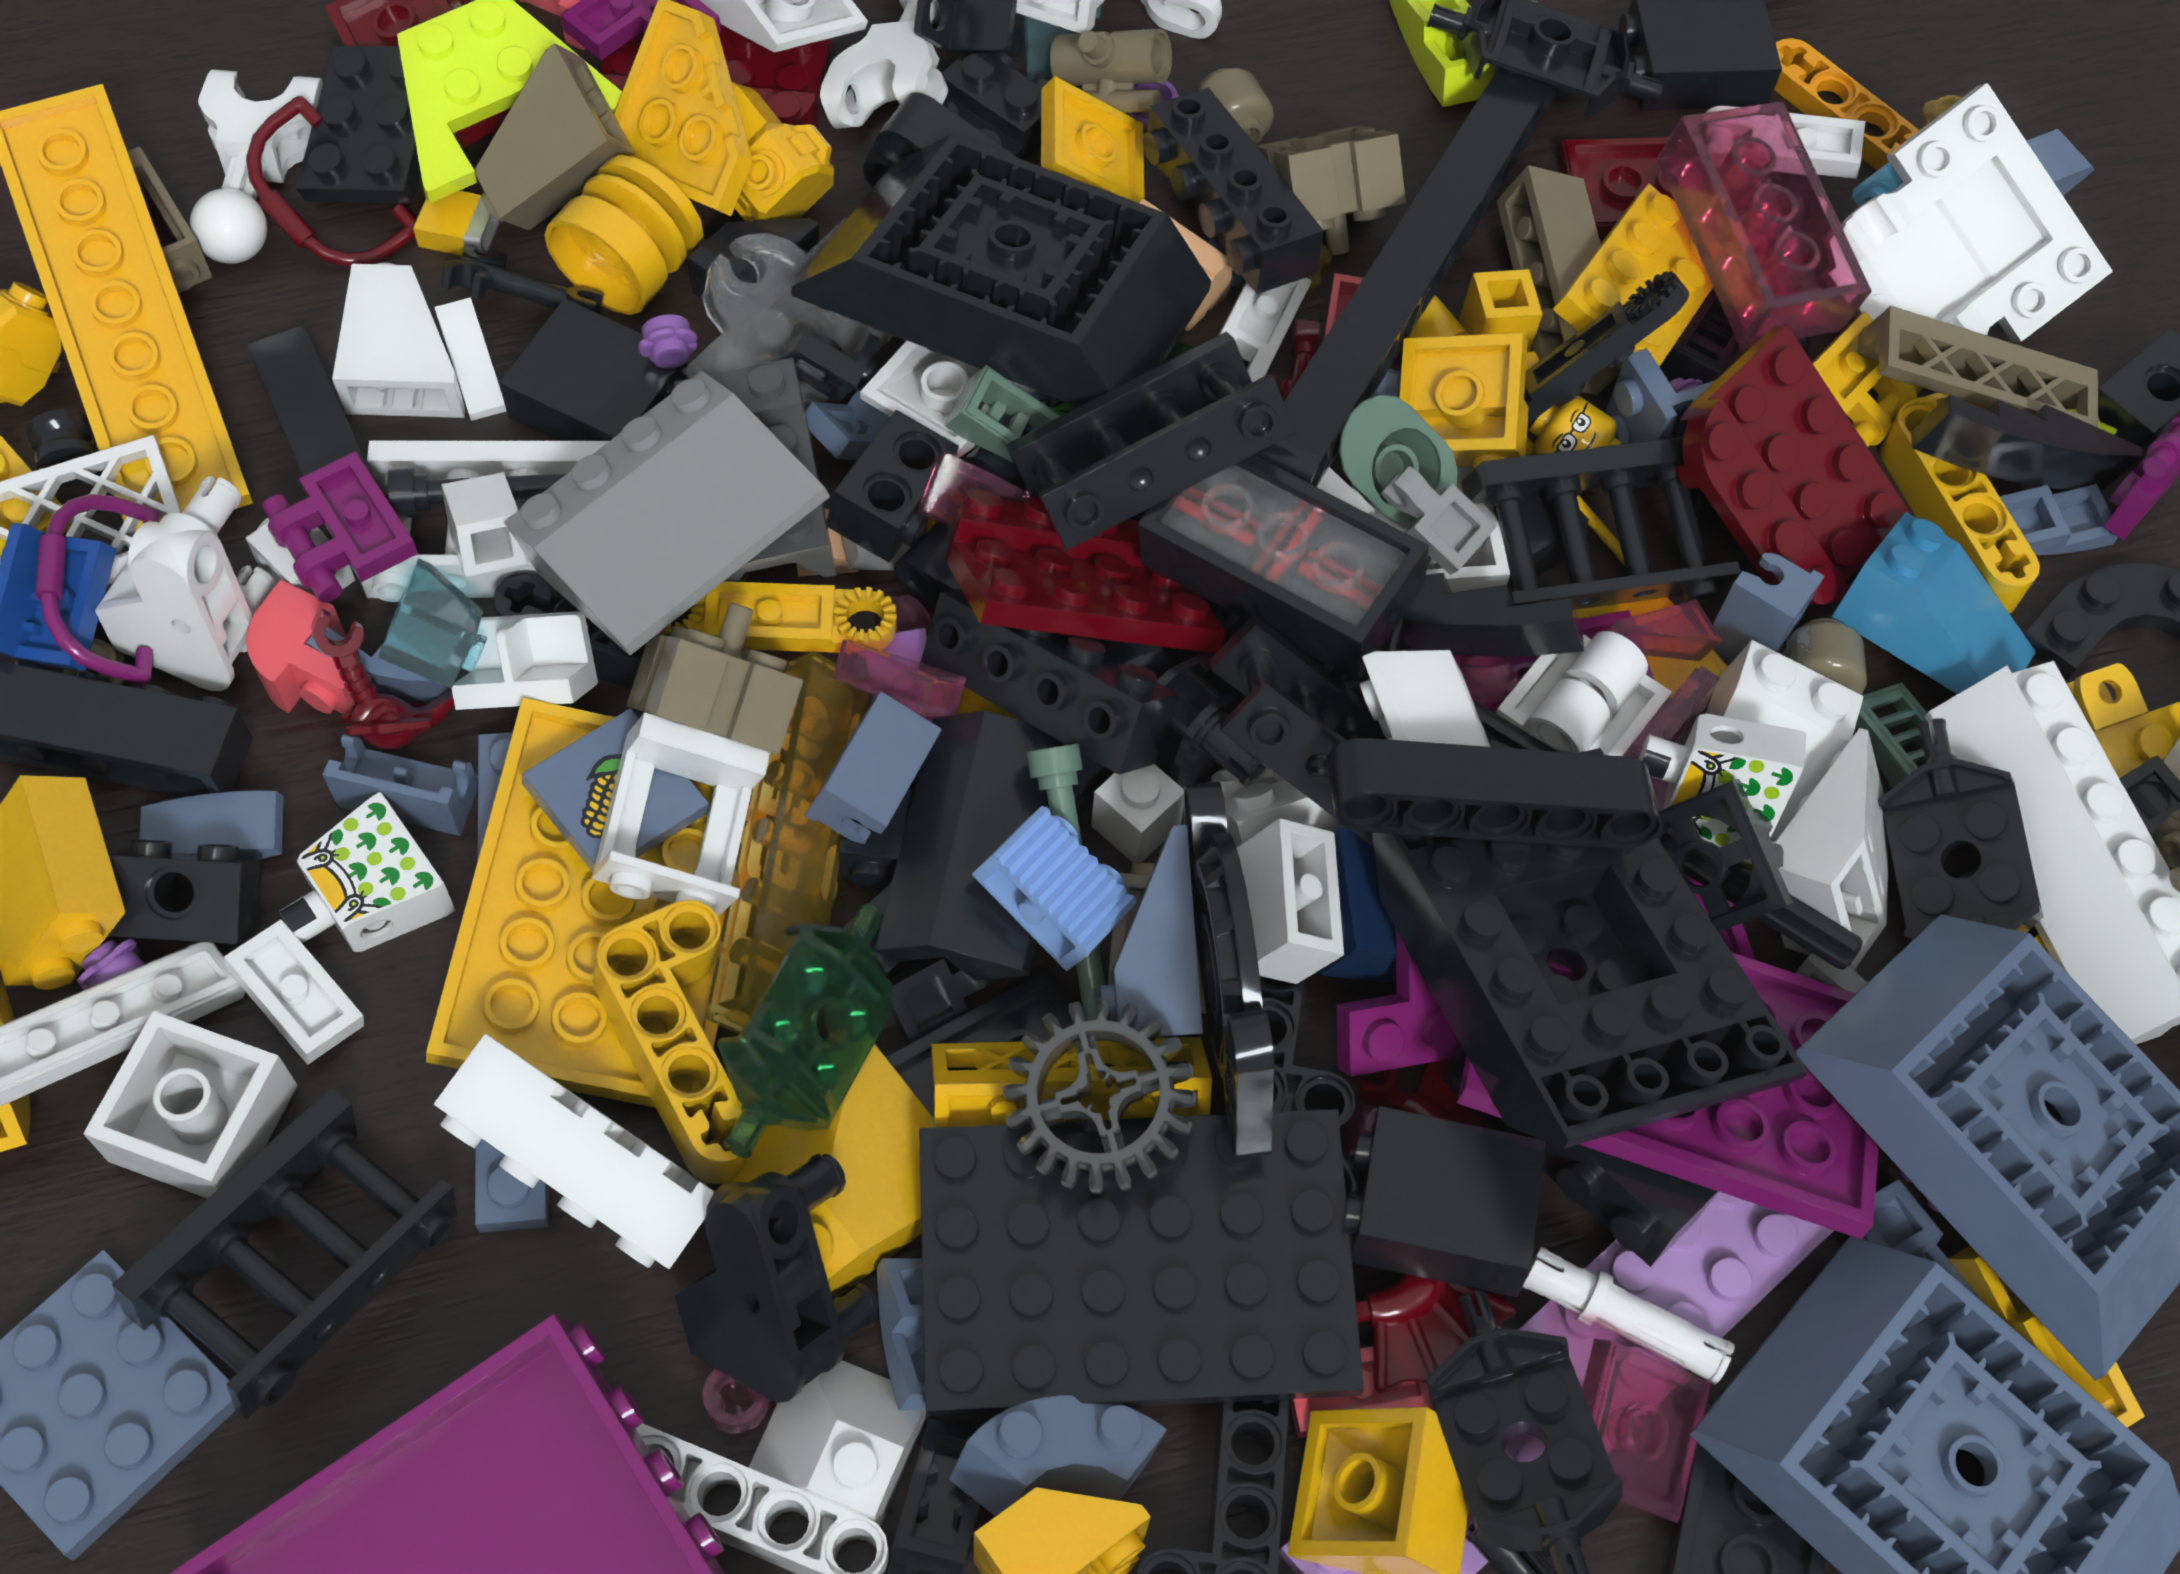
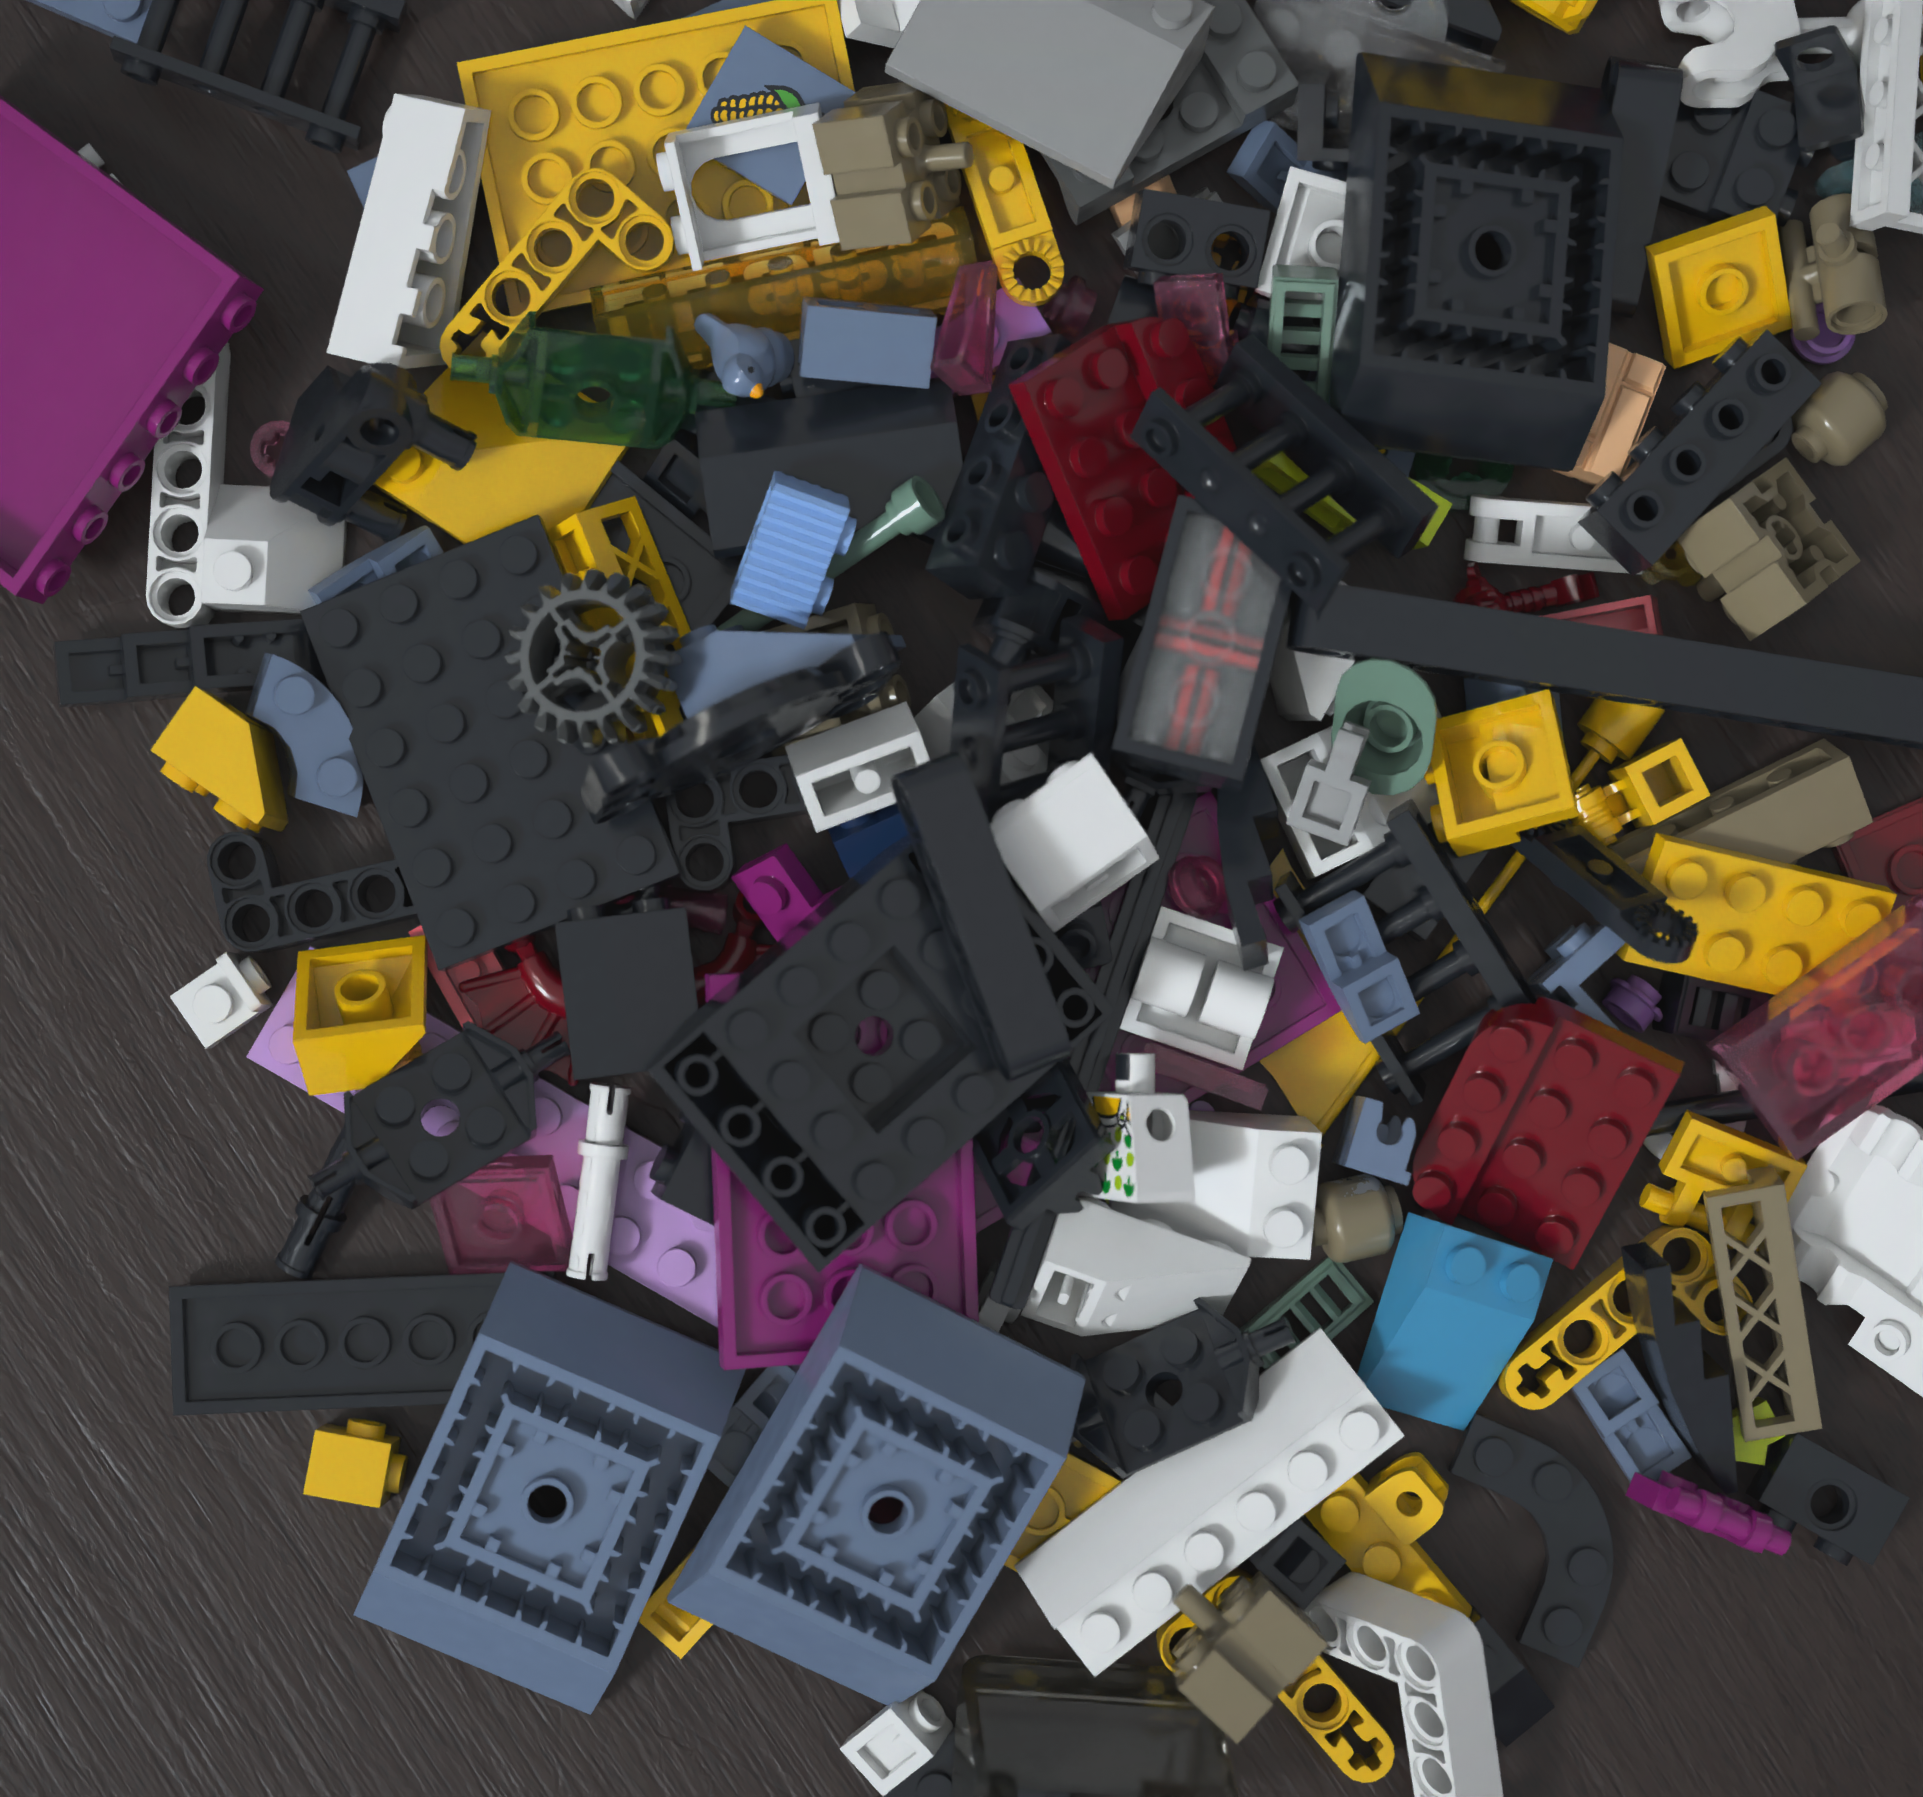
camera: 75 degrees right, 25 degrees up
(840, 881) = (746, 356): none -> sand blue animal
(1137, 810) = (941, 609): white brick -> none
(1573, 427) = (1528, 906): yellow head -> none
(1618, 560) = (1358, 967): none -> sand blue slope
(1671, 632) = (1331, 1060): clear pink piece -> none

